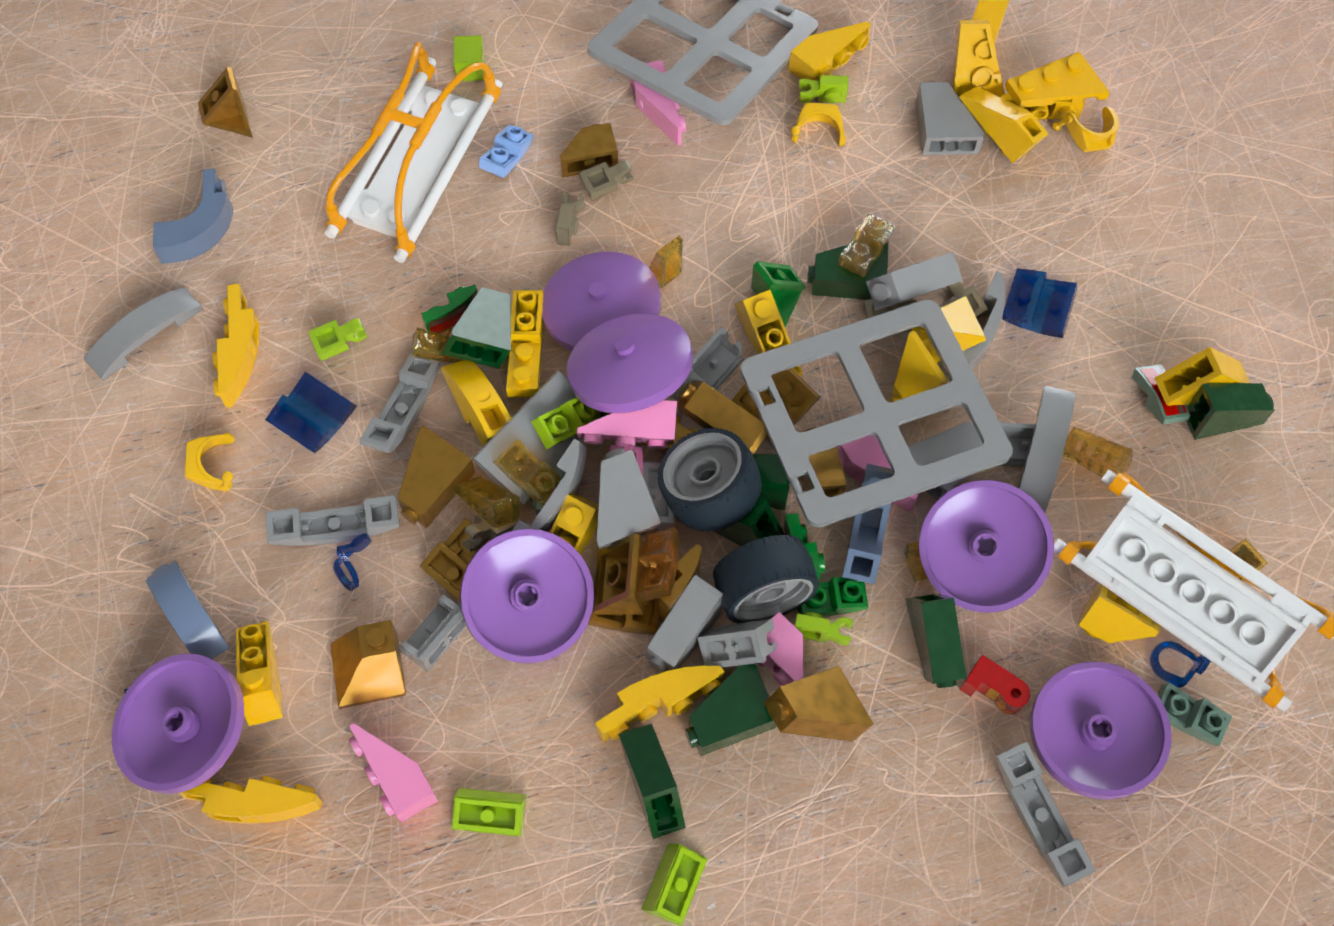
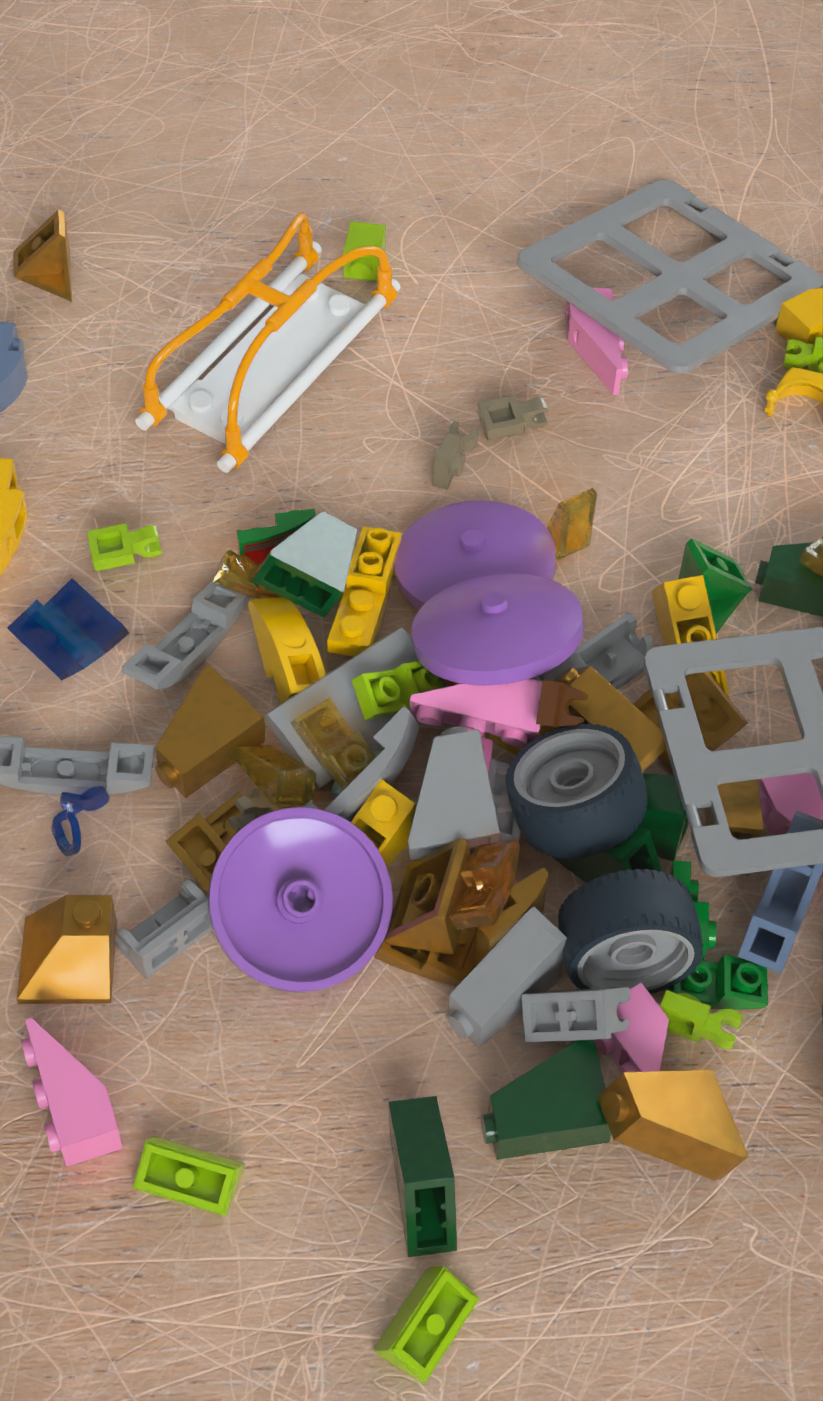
camera: 10 degrees right, 10 degrees down
(507, 151) = (391, 365): light blue slope -> none
(589, 148) = (495, 376): pearl gold slope -> none
(670, 690) = (468, 1059): yellow slope -> none
(683, 417) = (555, 703): none -> reddish brown tile

